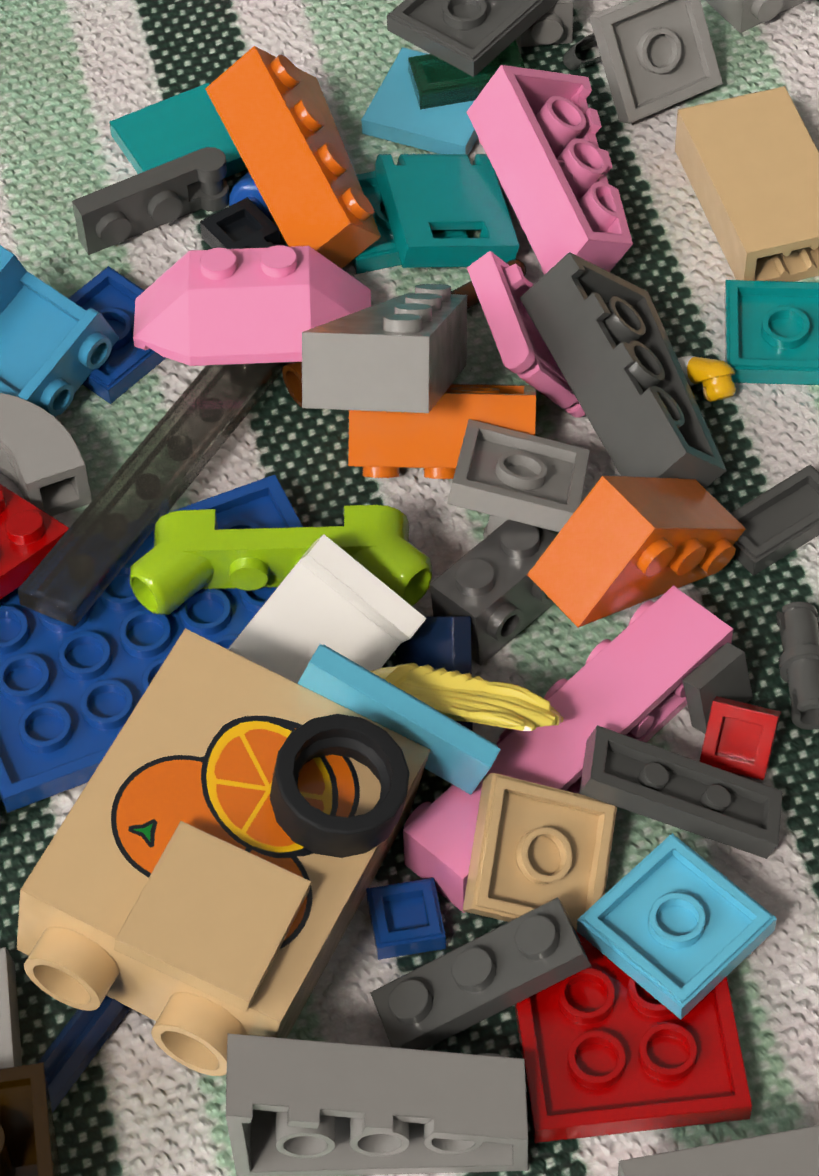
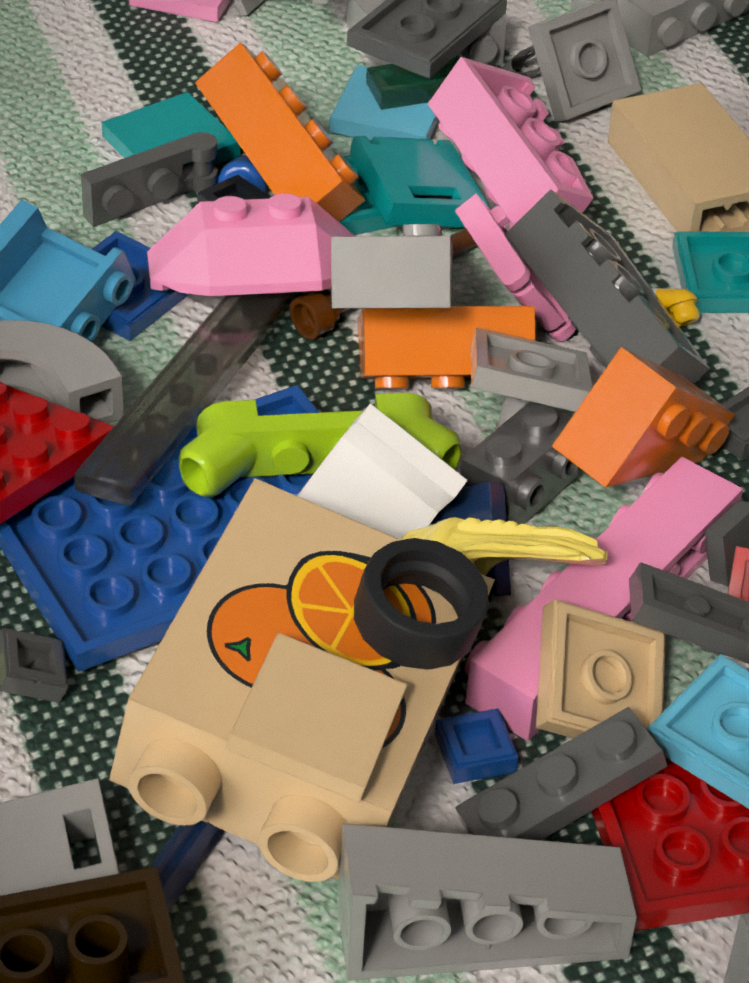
camera: 10 degrees left, 10 degrees down
(454, 750) = (520, 582): medium azure tile -> none

